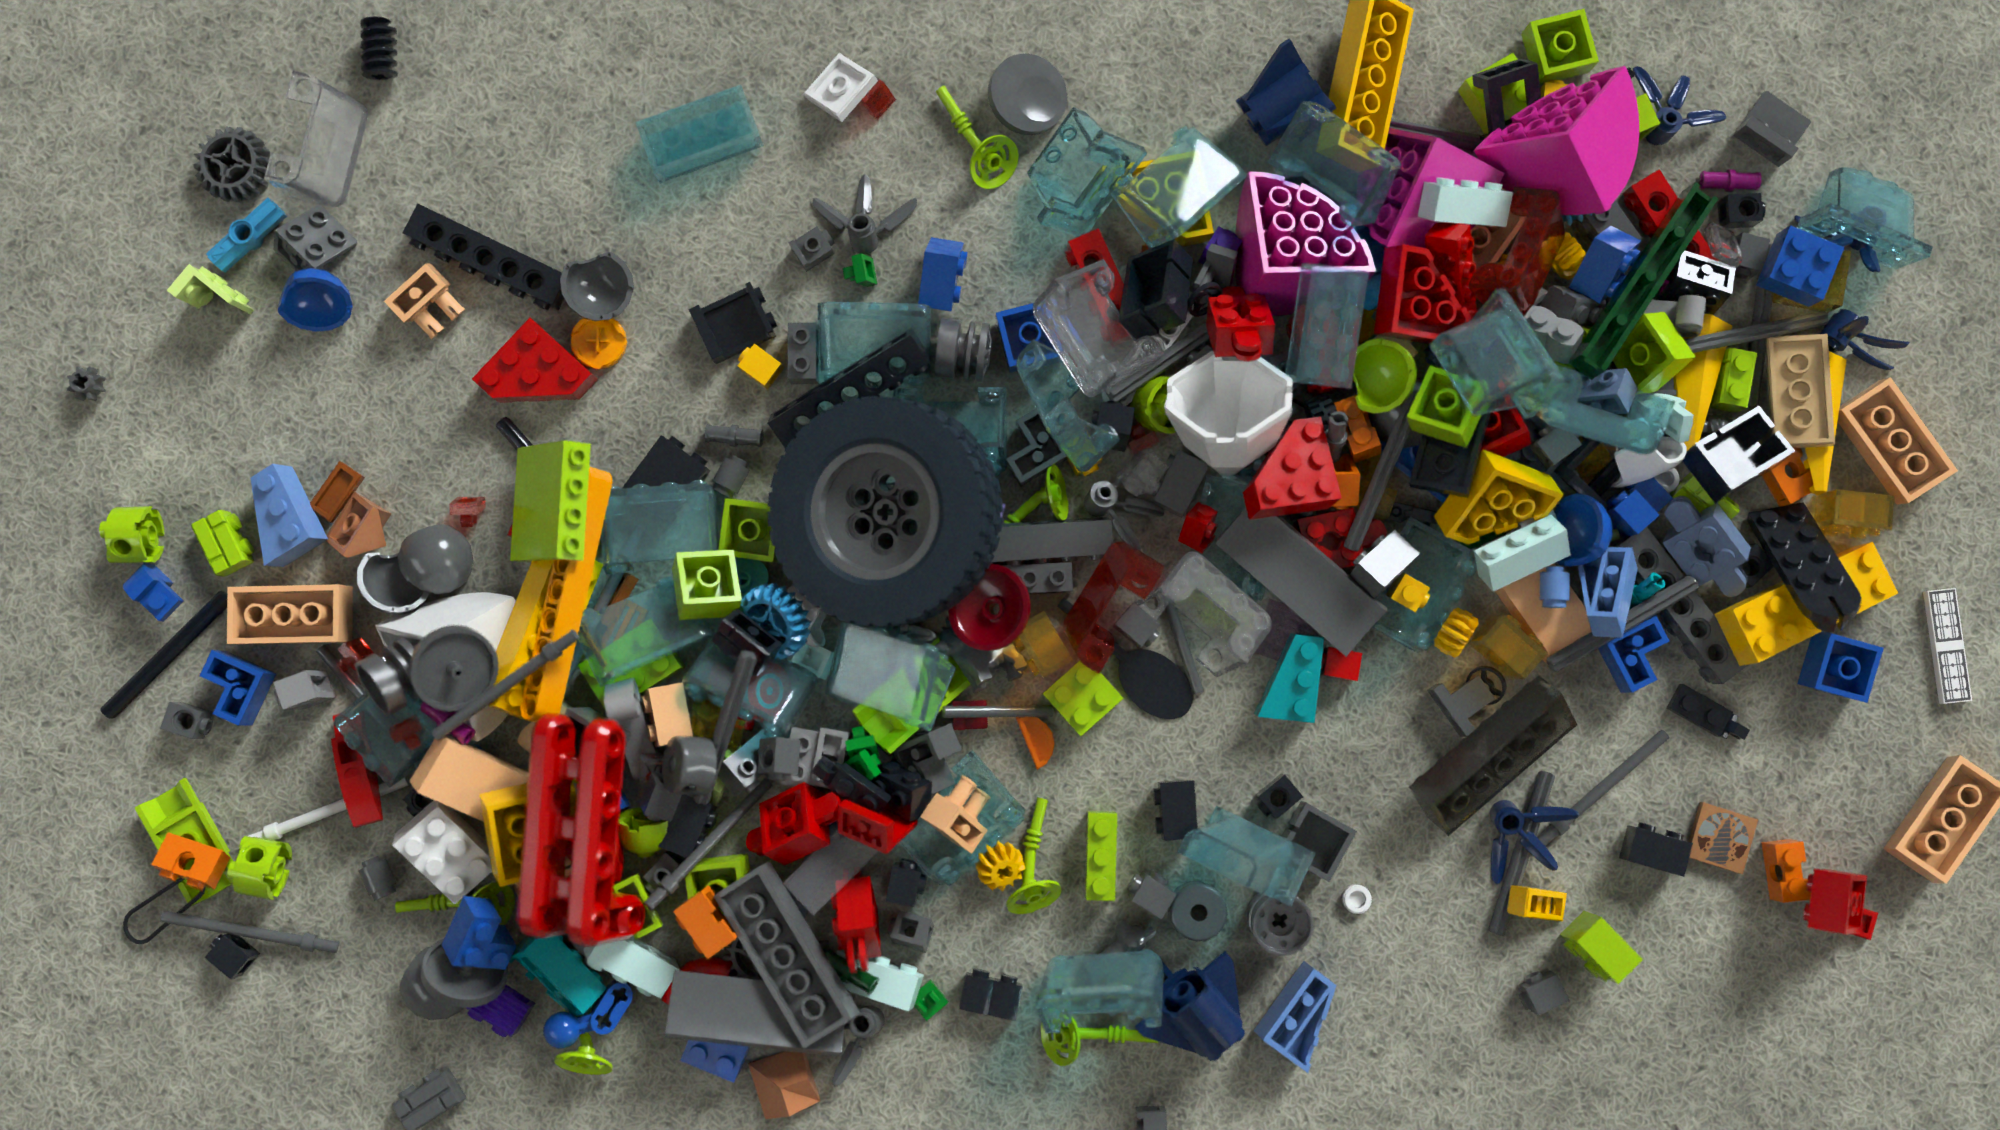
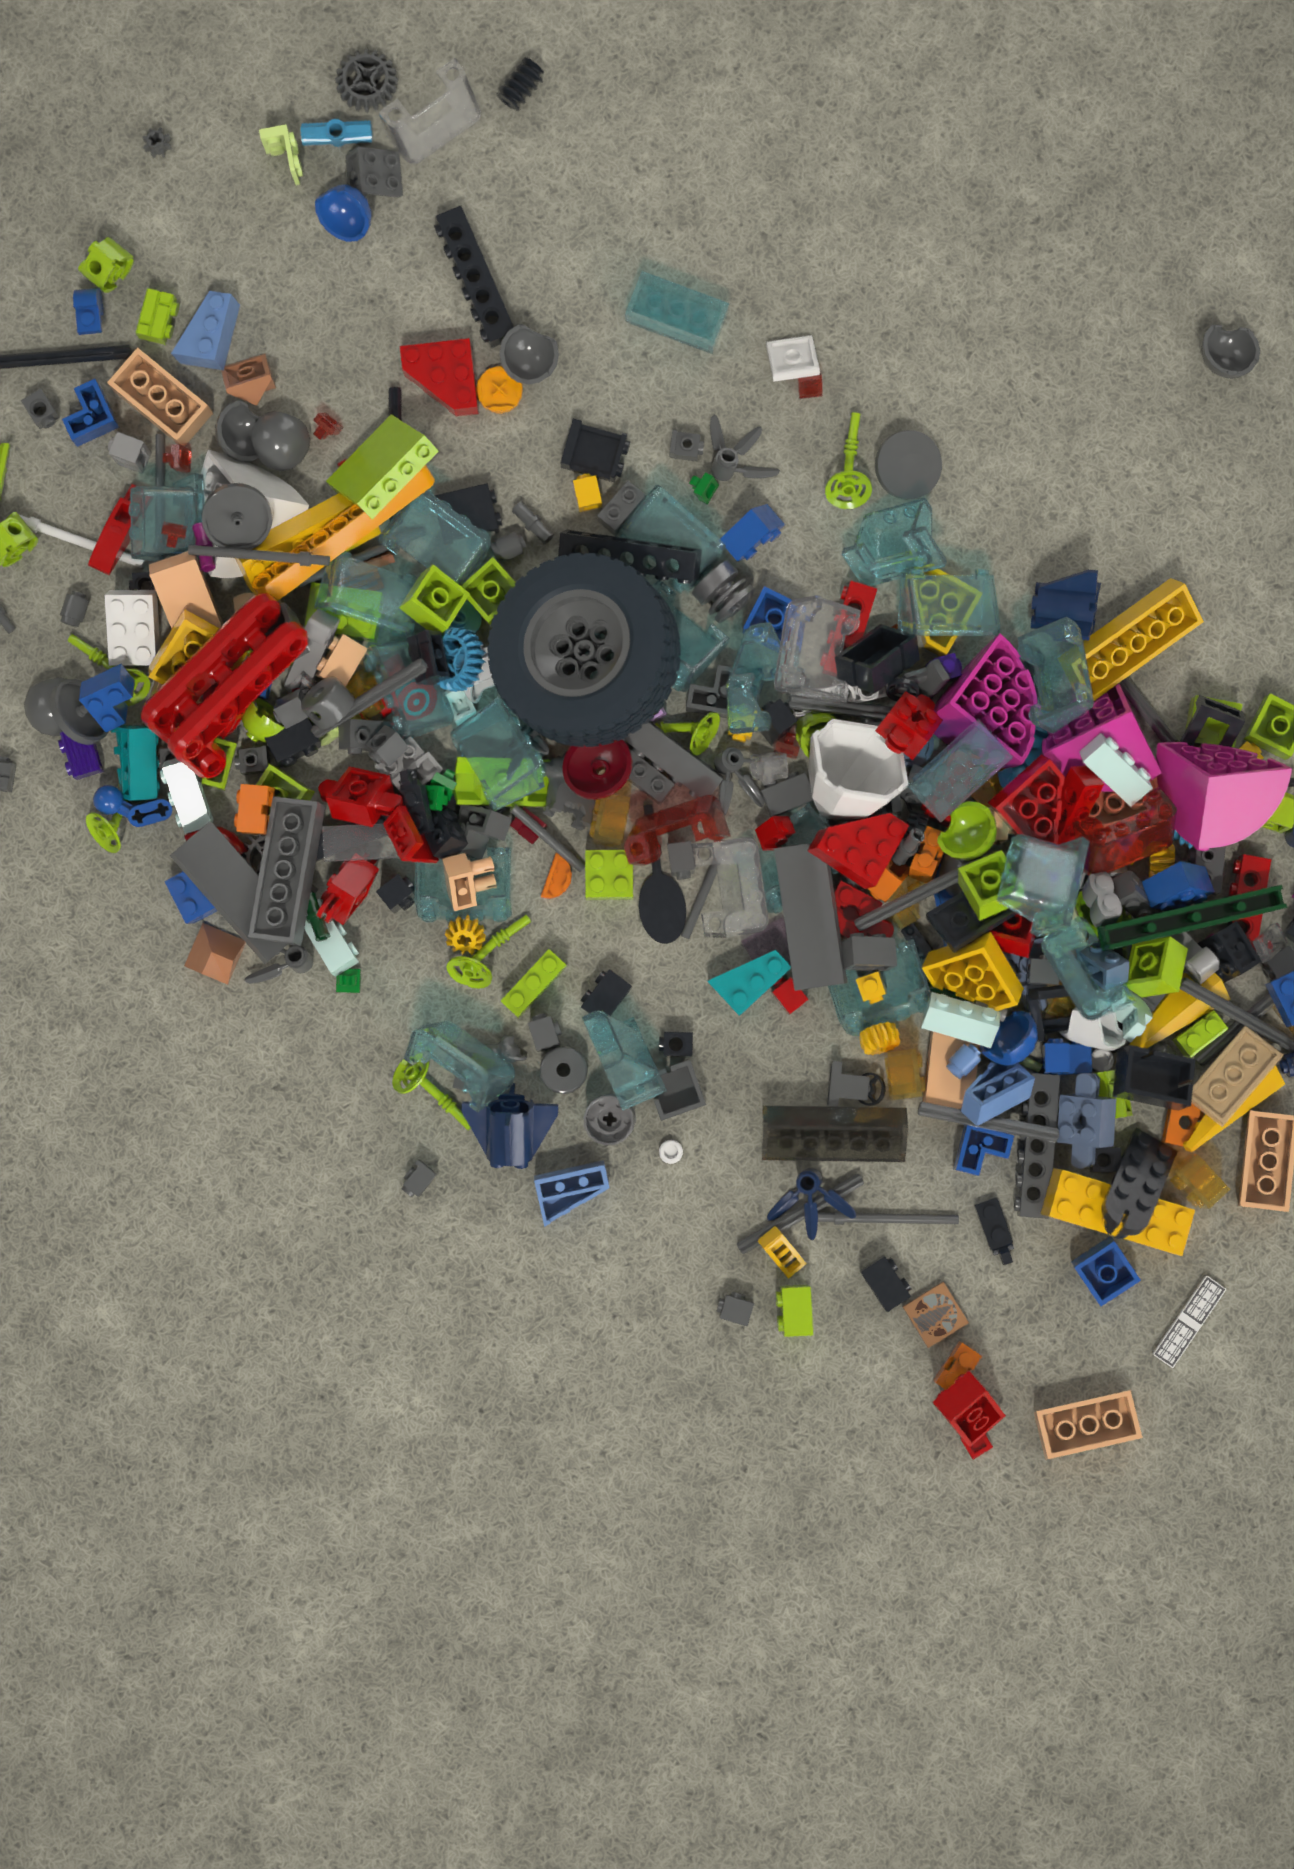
camera: 40 degrees right, 0 degrees up
(336, 491) = (253, 344): dark orange tile -> none
(389, 679) = (190, 489): flat silver wheel -> none
(420, 290) = (412, 262): light nougat brick -> none
(669, 884) = (253, 765): dark grey bar -> none
(904, 921) = (375, 919): dark grey brick -> none
(991, 995) = (389, 1010): black brick -> none
(1646, 589) = (1021, 1113): teal pin -> none

